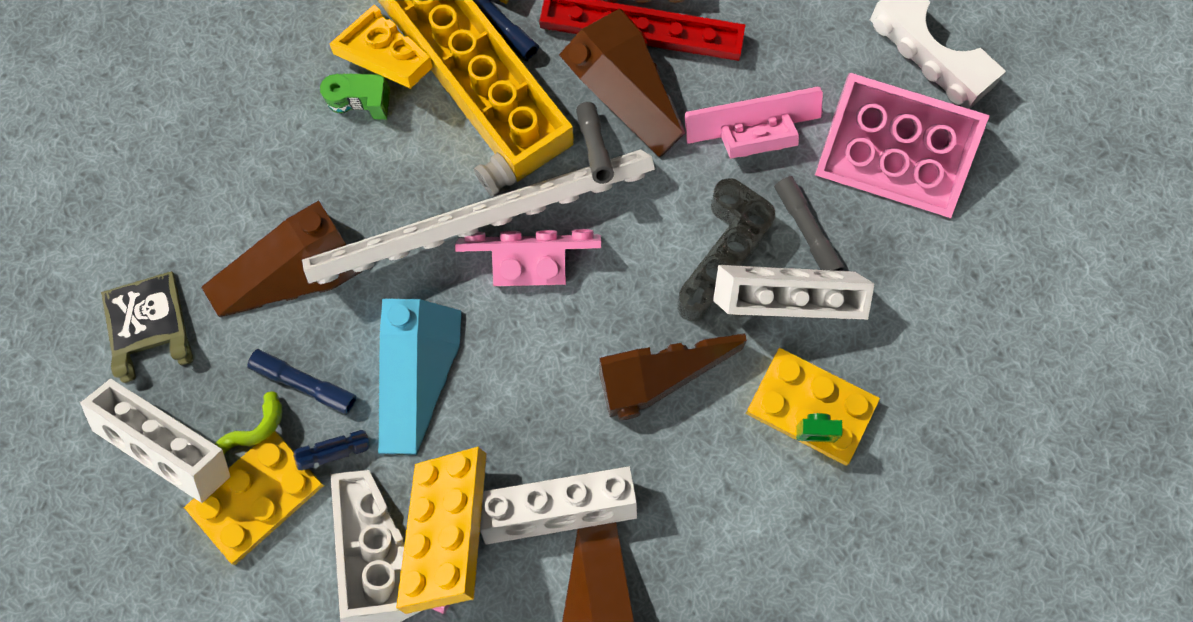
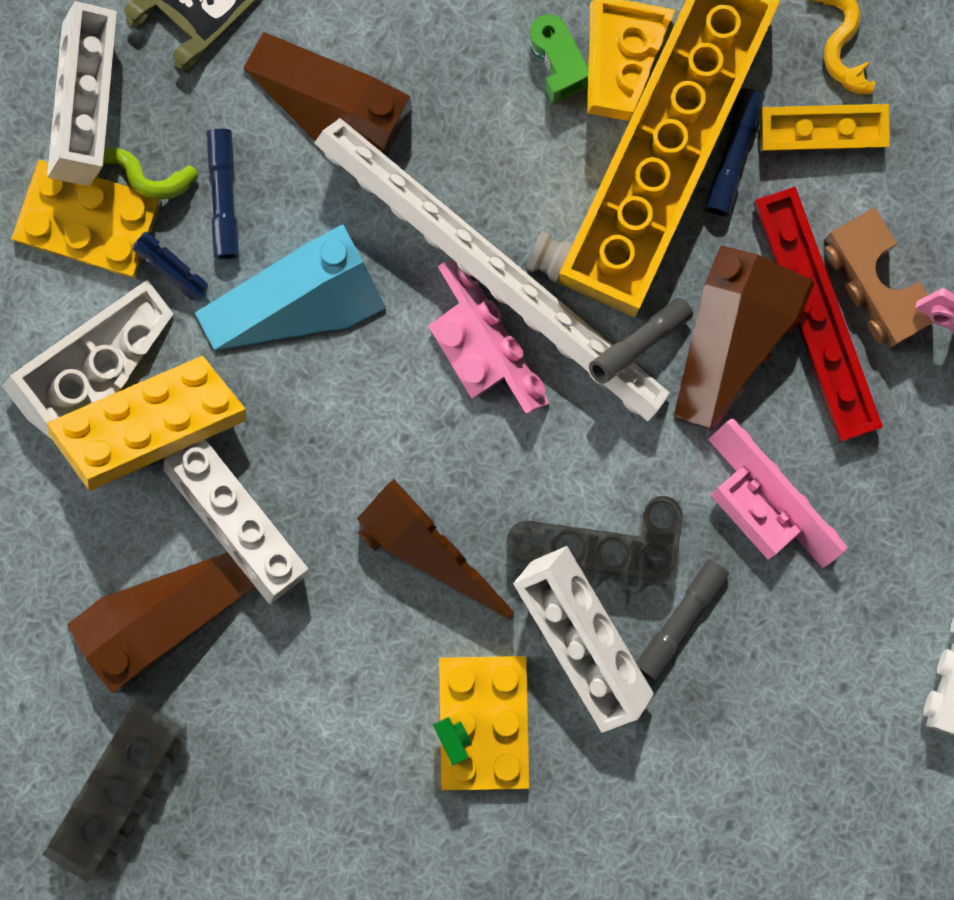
camera: 60 degrees right, 10 degrees up
(901, 145) = (835, 670): bright pink slope -> none

